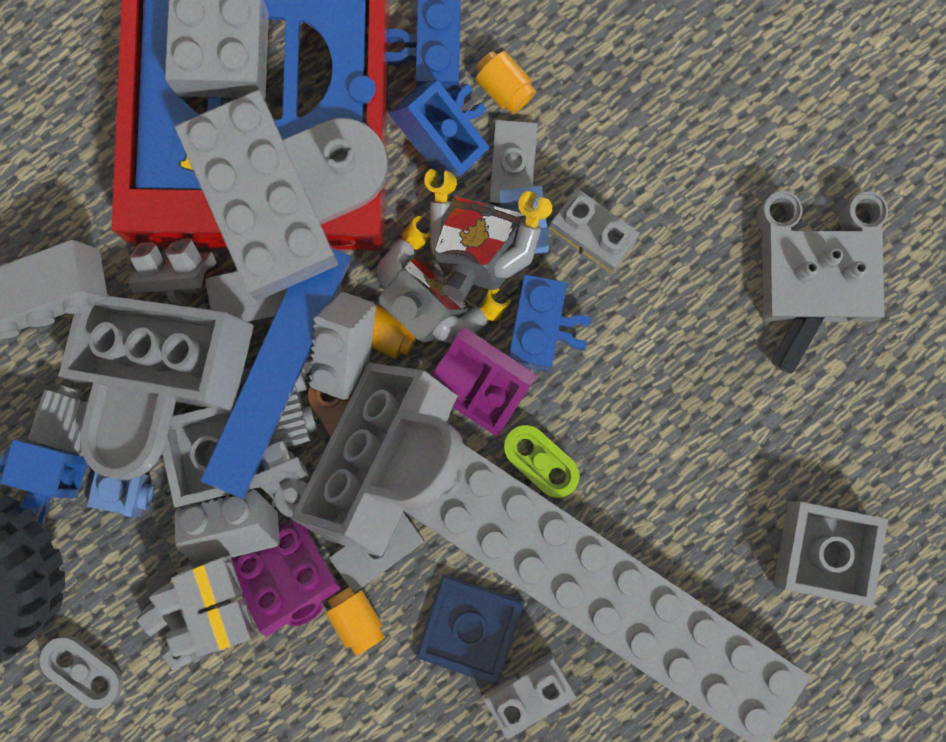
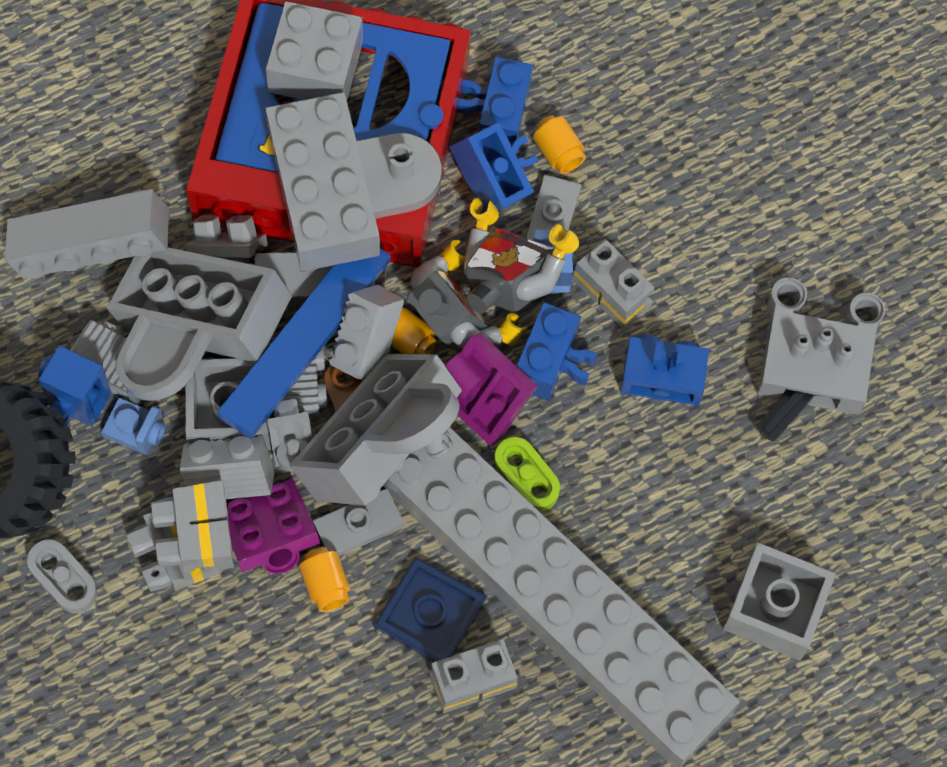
camera: 10 degrees right, 15 degrees down
(665, 317) = (665, 370): none -> blue brick

